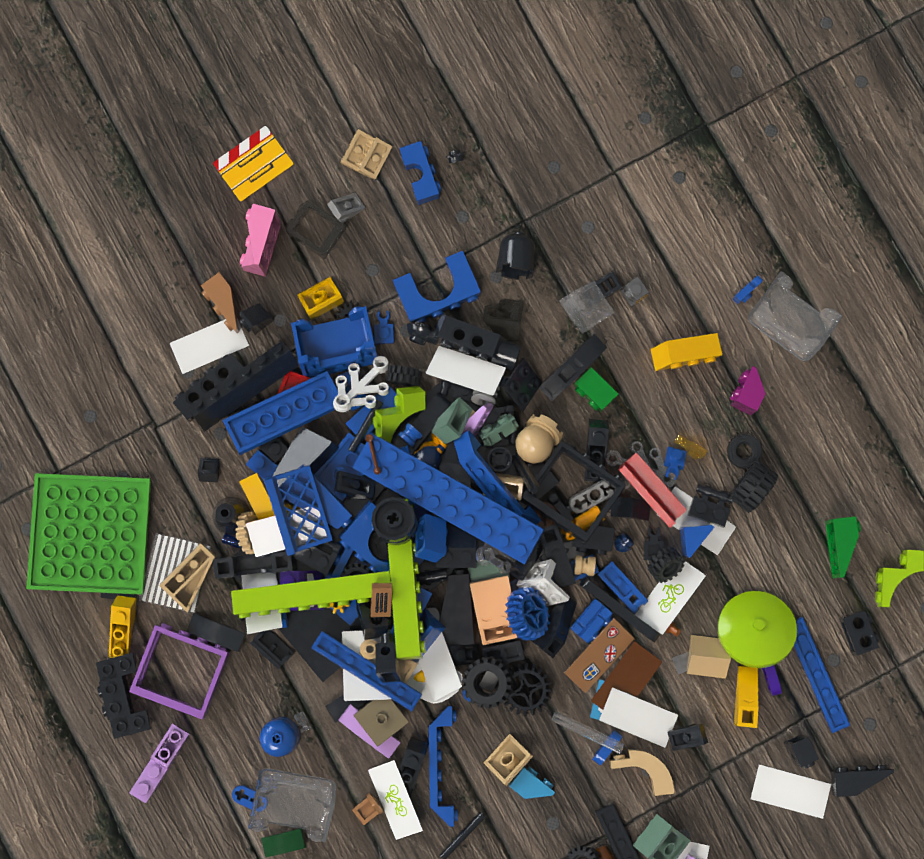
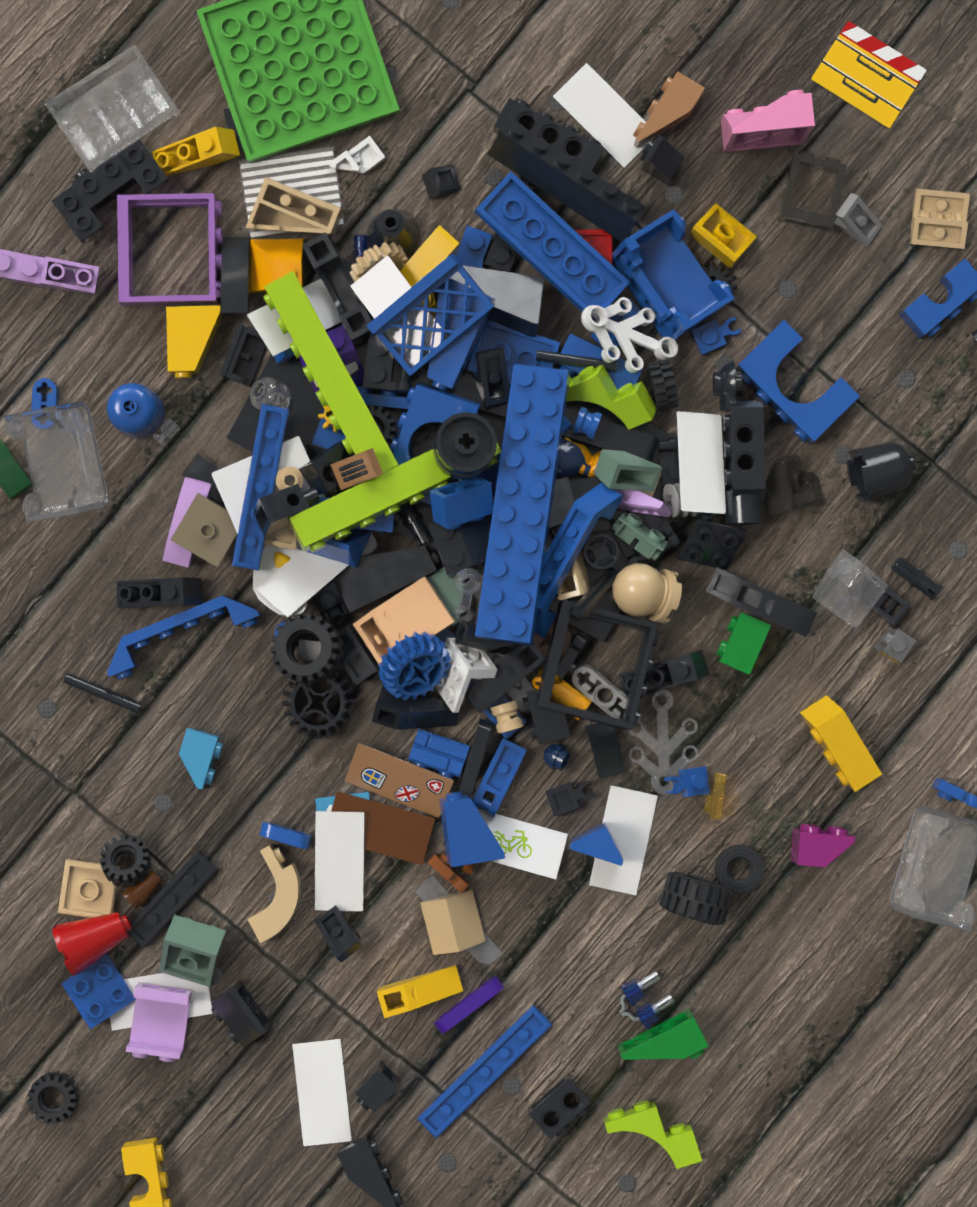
camera: 70 degrees right, 5 degrees up
(69, 671) = (112, 108): none -> clear slope
(171, 518) = (360, 158): none -> white slope
(217, 602) = (274, 259): none -> light orange slope
(245, 680) = (190, 337): none -> yellow slope
(305, 639) = (269, 392): none -> clear head
(368, 809) = (89, 559): medium nougat tile -> none
(369, 438) = (560, 370): reddish brown hinge -> none
(395, 800) = (113, 589): white sticker -> none
(508, 759) = (220, 714): tan slope -> none
(587, 732) = (294, 802): clear axle -> none
(596, 261) = (916, 578): none -> black axle
(652, 489) = (640, 767): panel -> none
(652, 623) = (466, 832): none -> blue slope
(666, 564) = (549, 822): black tyre -> none
(668, 647) = (440, 864): none -> dark orange plate
(707, 510) = (641, 851): black plate -> none
(717, 826) = (240, 1014): none -> black slope
(757, 629) = (512, 971): lime dish -> none
(801, 552) = (633, 992): none -> piece

